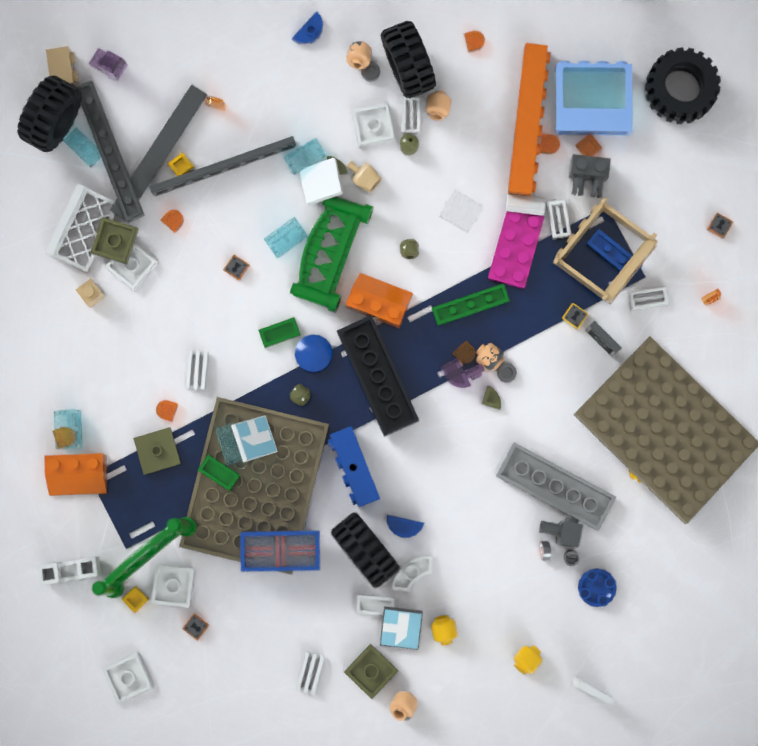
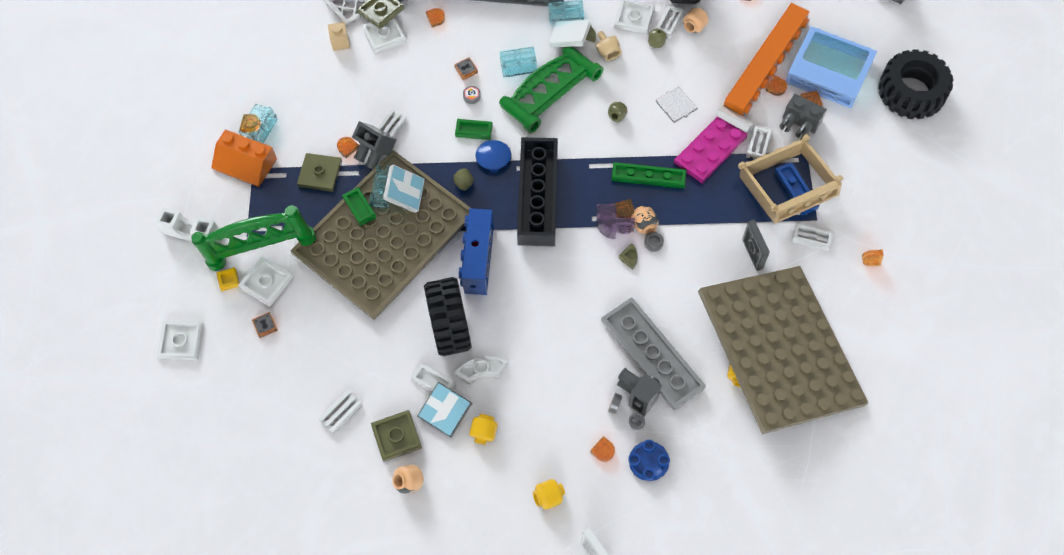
camera: 25 degrees right, 20 degrees down
(195, 398) = (373, 139): none -> dark grey brick
(257, 295) = (471, 94): none -> tile
(280, 551) = (373, 287): clear brick -> none
(379, 299) = (573, 141): orange slope -> none
(404, 527) = (495, 325): blue plate -> none
(554, 596) = (603, 450): none -> clear orange tile
(574, 316) = (737, 221): tile -> none
(720, 225) = (904, 206): tile -> none

